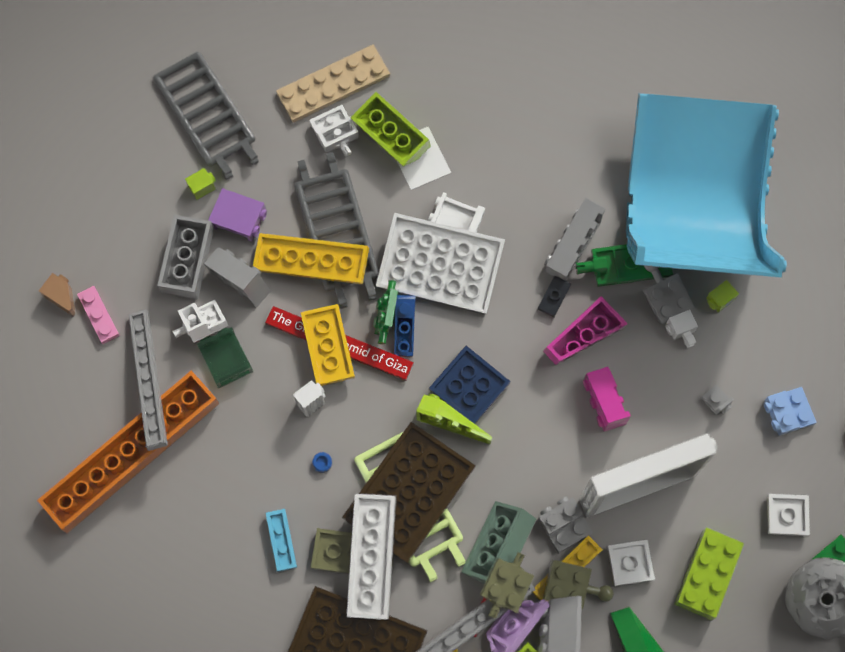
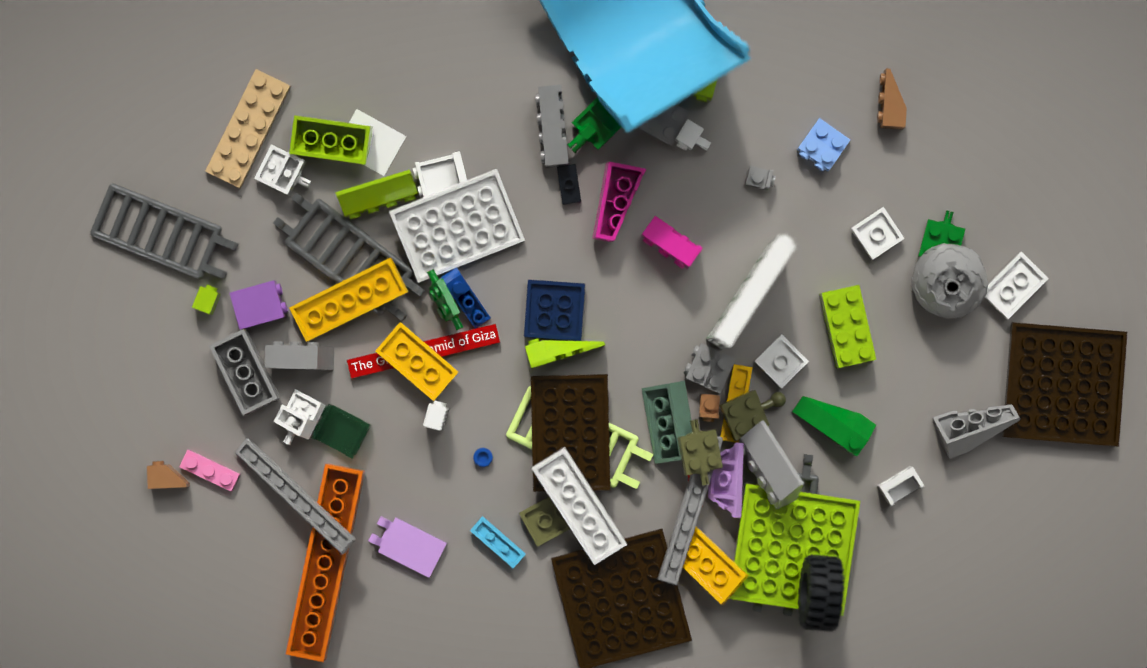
camera: 35 degrees left, 15 degrees up
(207, 490) = (409, 545): none -> lavender tile
(395, 194) = (377, 193): none -> lime slope
(541, 557) = (709, 407): none -> medium nougat bracket

